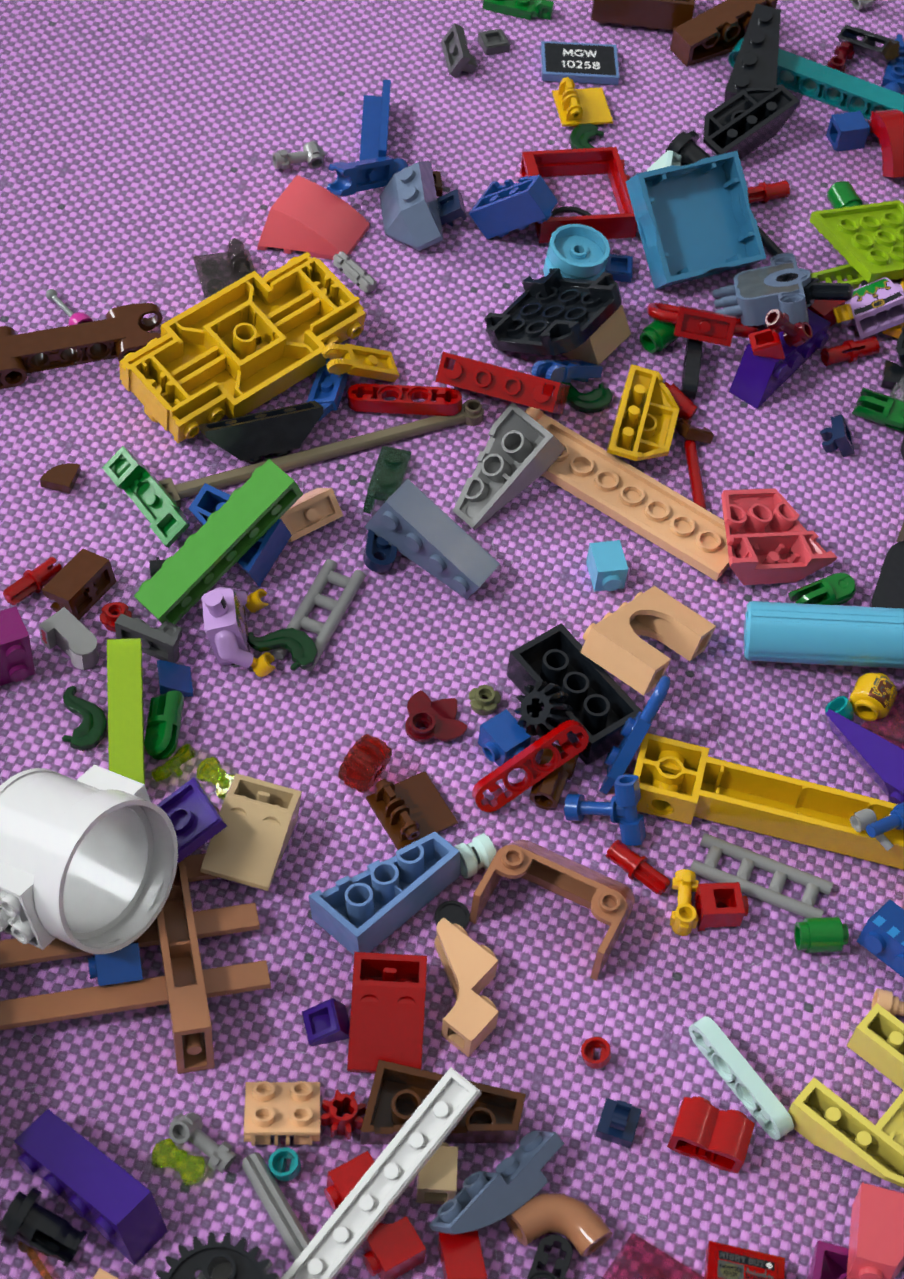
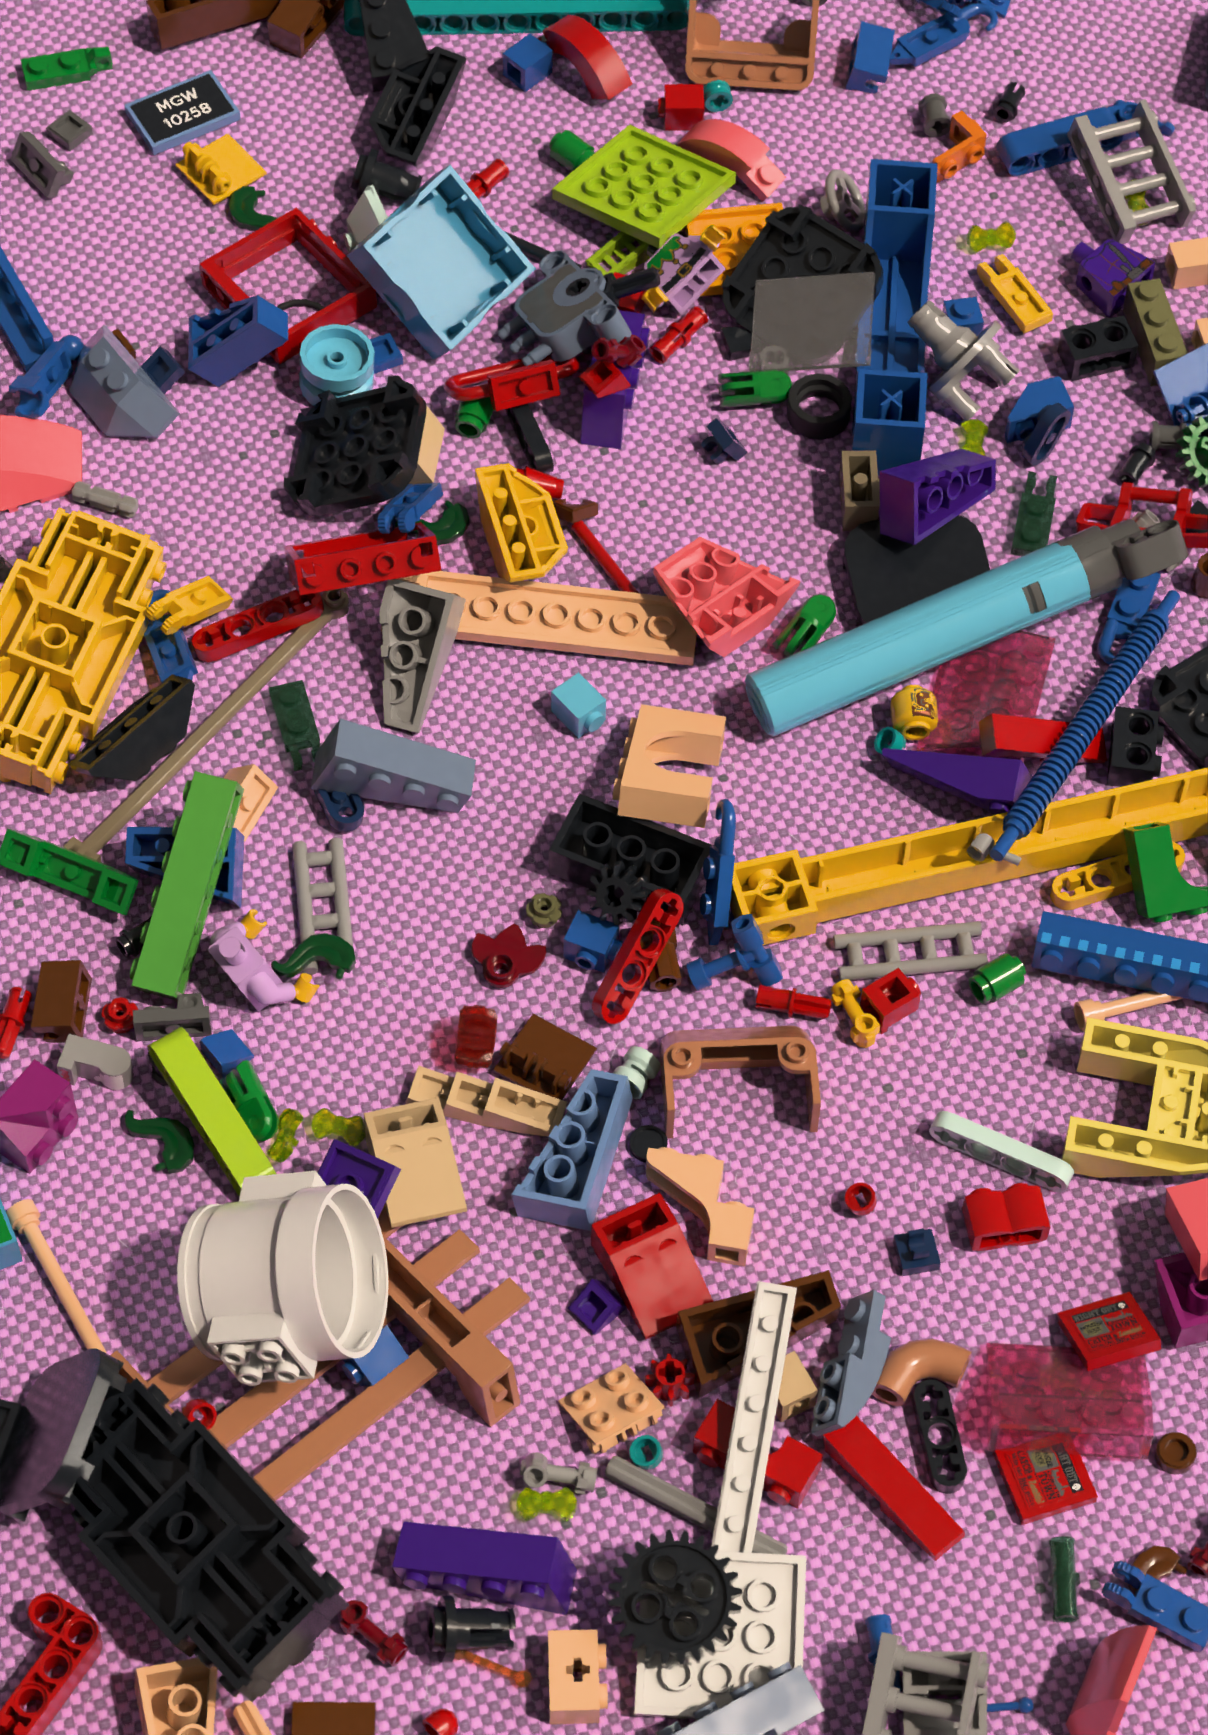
camera: 25 degrees left, 5 degrees up
(341, 818) = (489, 1104): none -> tan slope

